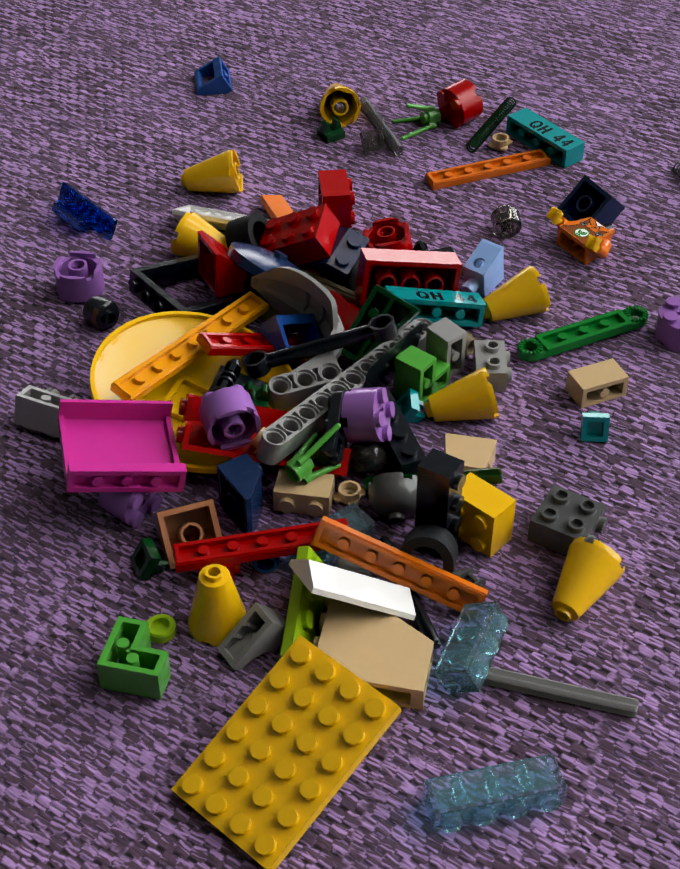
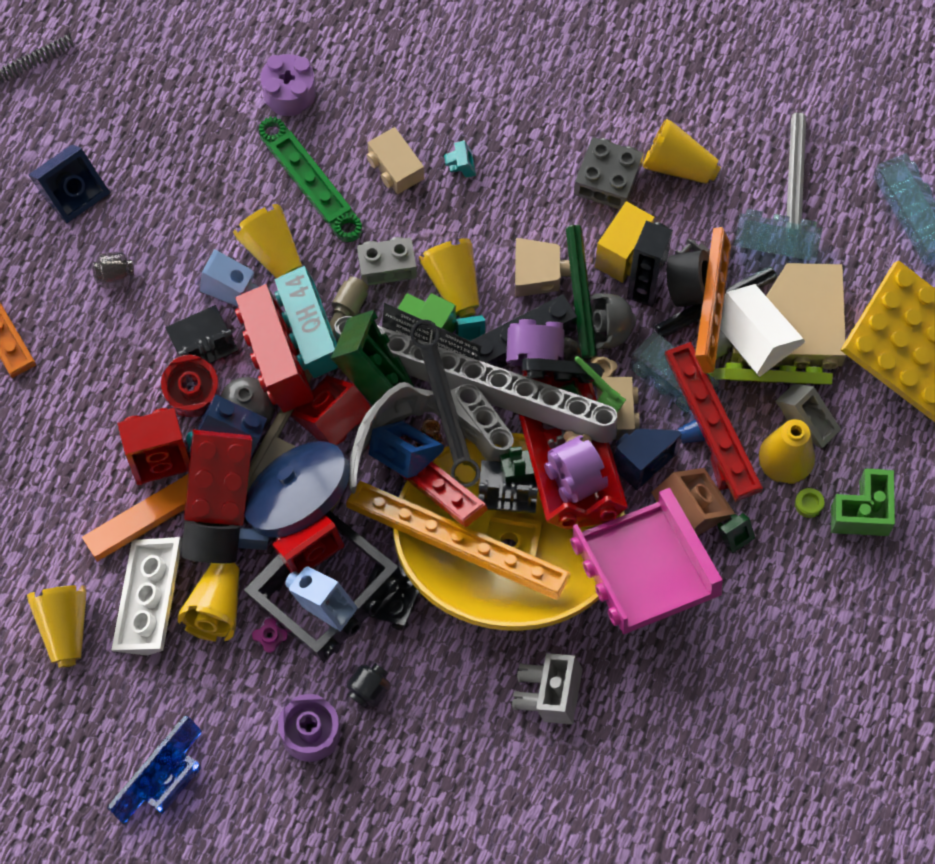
camera: 100 degrees left, 25 degrees up
(167, 262) = (312, 592): none -> light blue torso
(448, 343) = (381, 290): light grey brick -> none
(582, 238) = (139, 182): torso -> none

